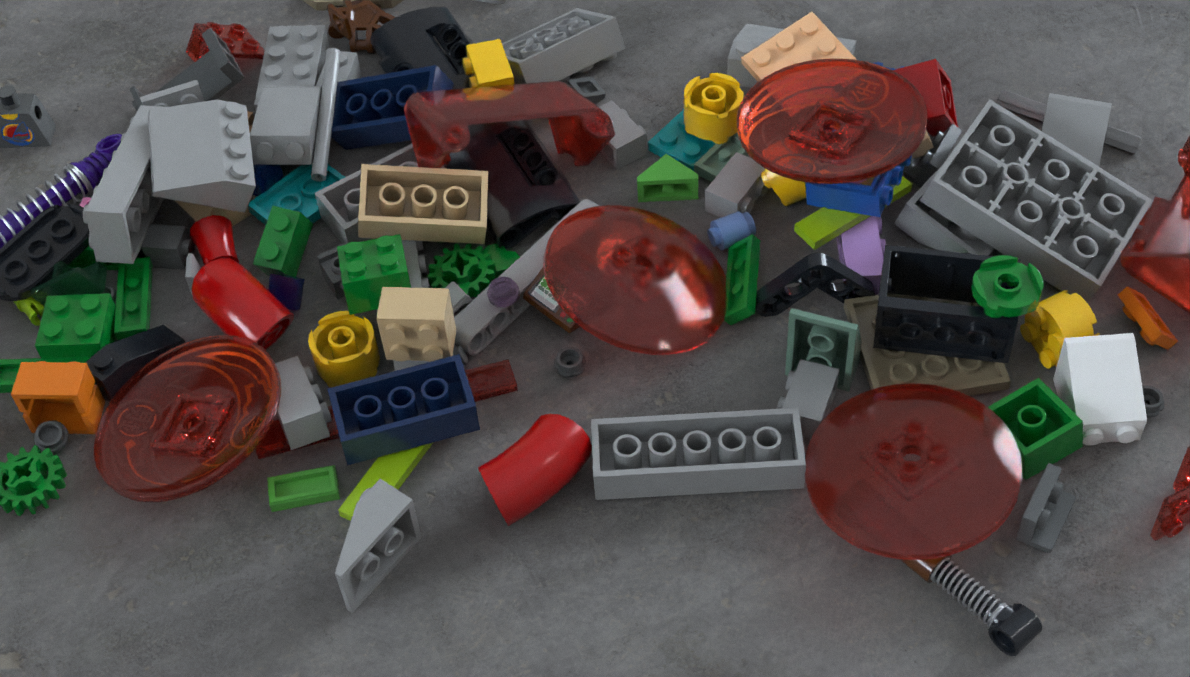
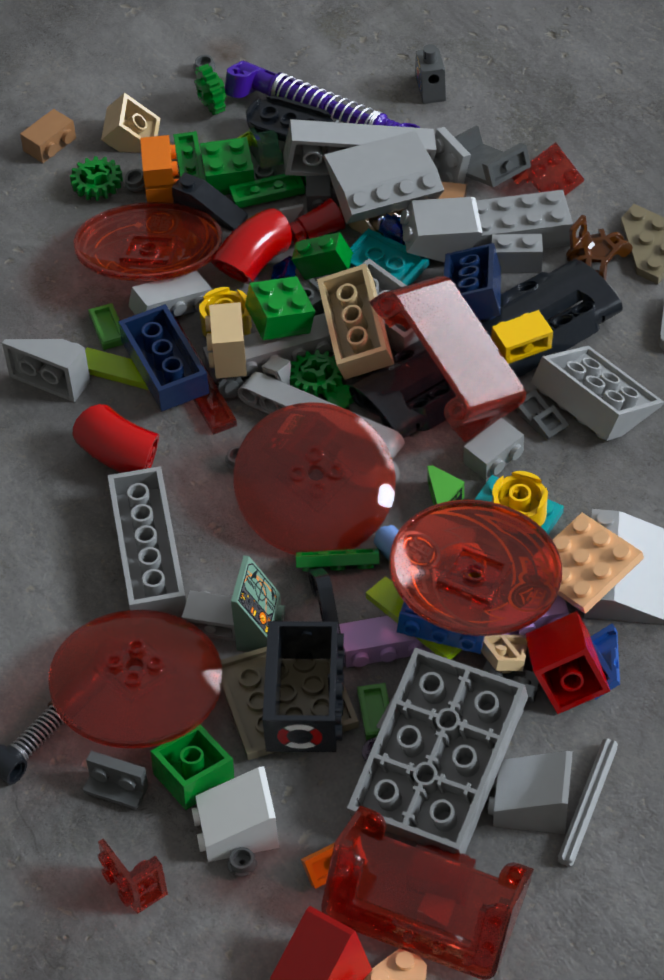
camera: 80 degrees right, 0 degrees up
(326, 114) = (458, 245): light grey piece -> none
(503, 292) = (282, 393): clear purple plate -> none
(1007, 302) = (291, 719): green plate -> none
(1054, 320) = (300, 782): yellow brick -> none

